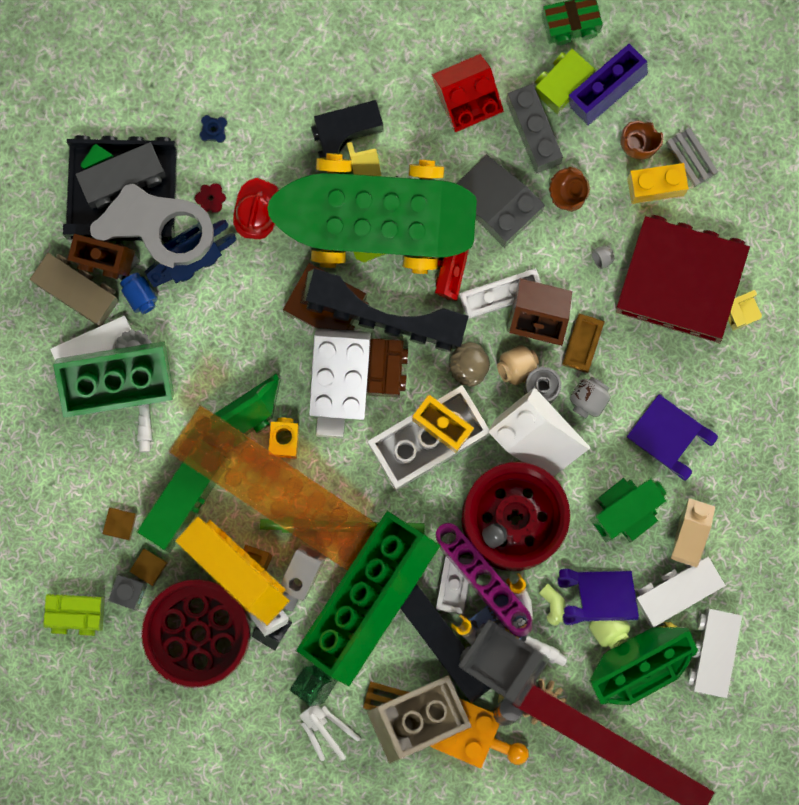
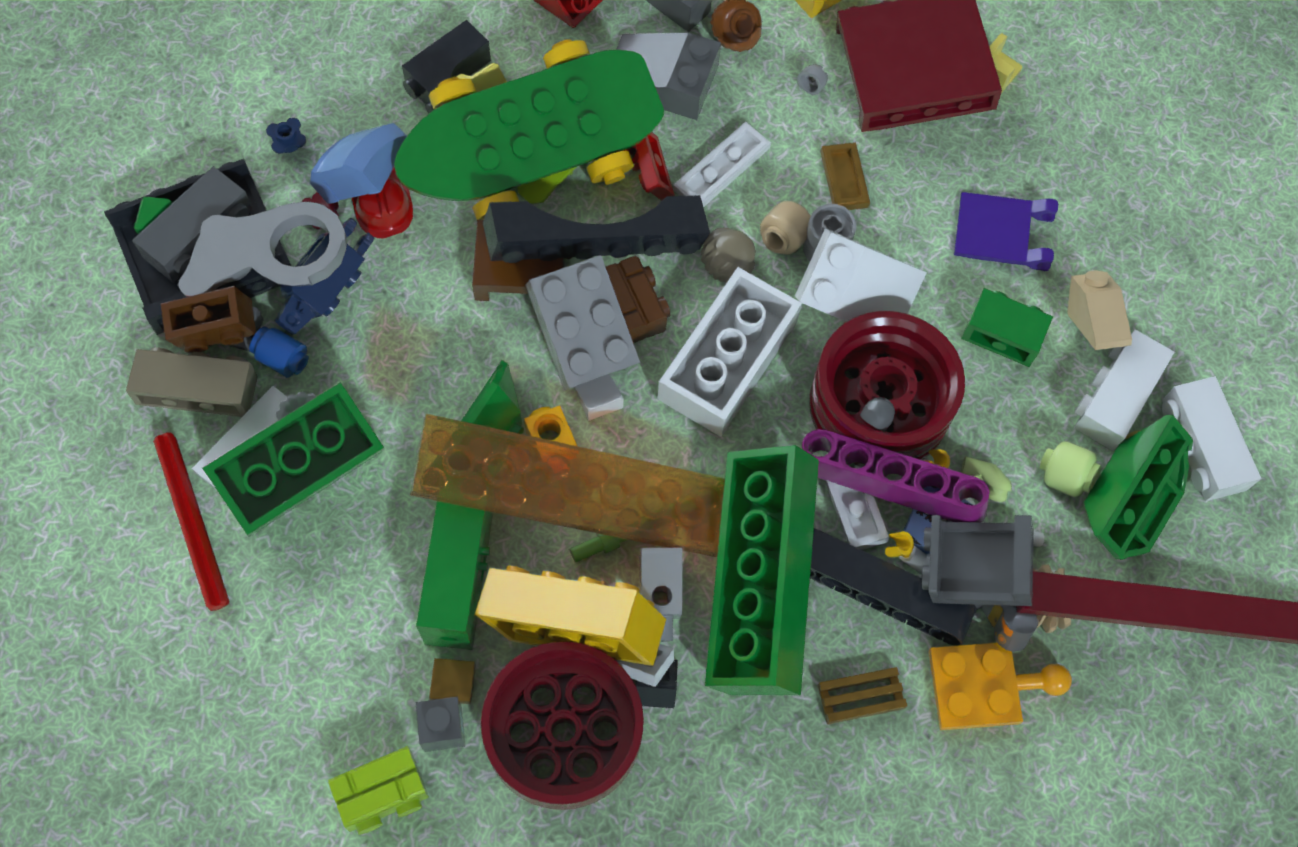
camera: 30 degrees left, 15 degrees down
(35, 383) = (191, 522): none -> red axle
(119, 524) = (386, 644): pearl gold tile -> none
(144, 429) = (362, 509): white animal -> none
(251, 180) = (357, 163): none -> medium blue slope
(313, 685) = (751, 721): clear green brick -> none
(315, 719) = (777, 765): white plant -> none
(419, 719) = (910, 696): dark tan slope -> none
(442, 423) = (743, 309): yellow brick -> none
(540, 312) = (781, 160): reddish brown slope -> none
(590, 397) = (890, 224): light grey head -> none
(602, 596) = (1040, 435): dark purple flag -> none
(629, 509) = (1020, 307): green window -> none

